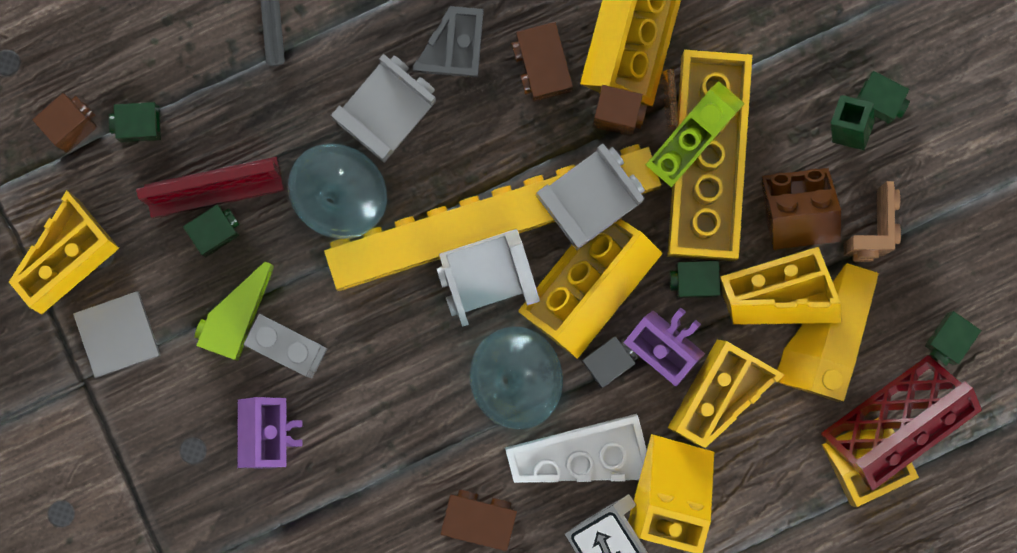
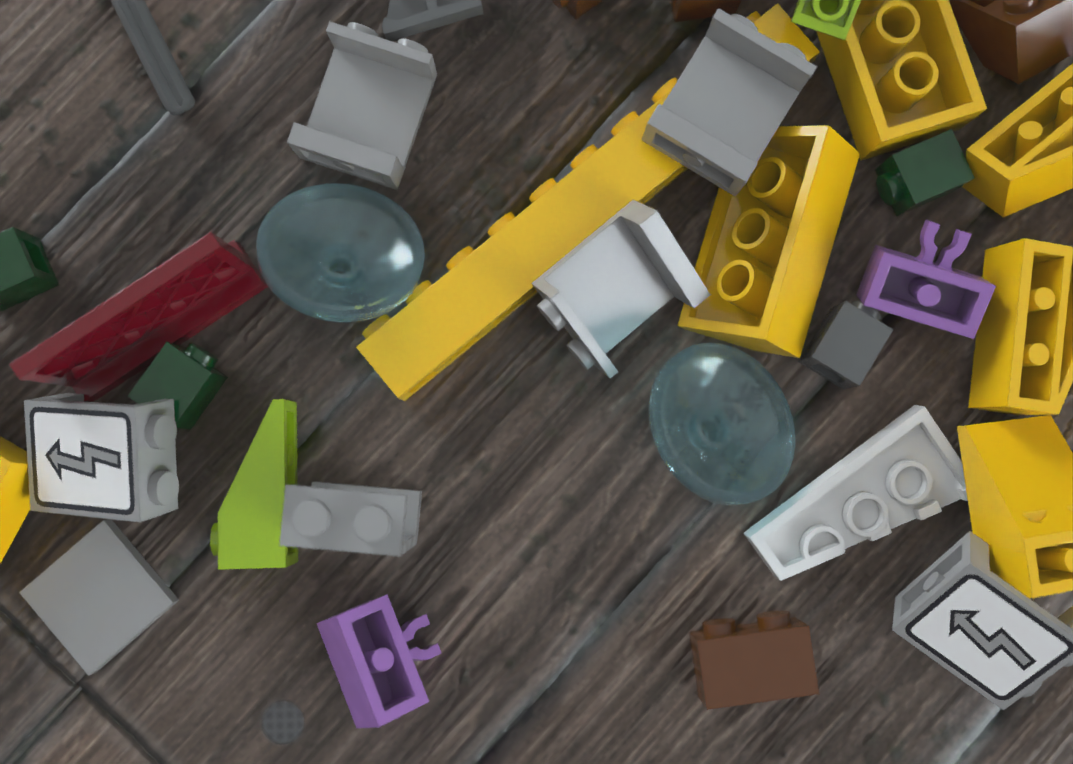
camera: 20 degrees left, 0 degrees up
(155, 256) = (101, 457): none -> panel

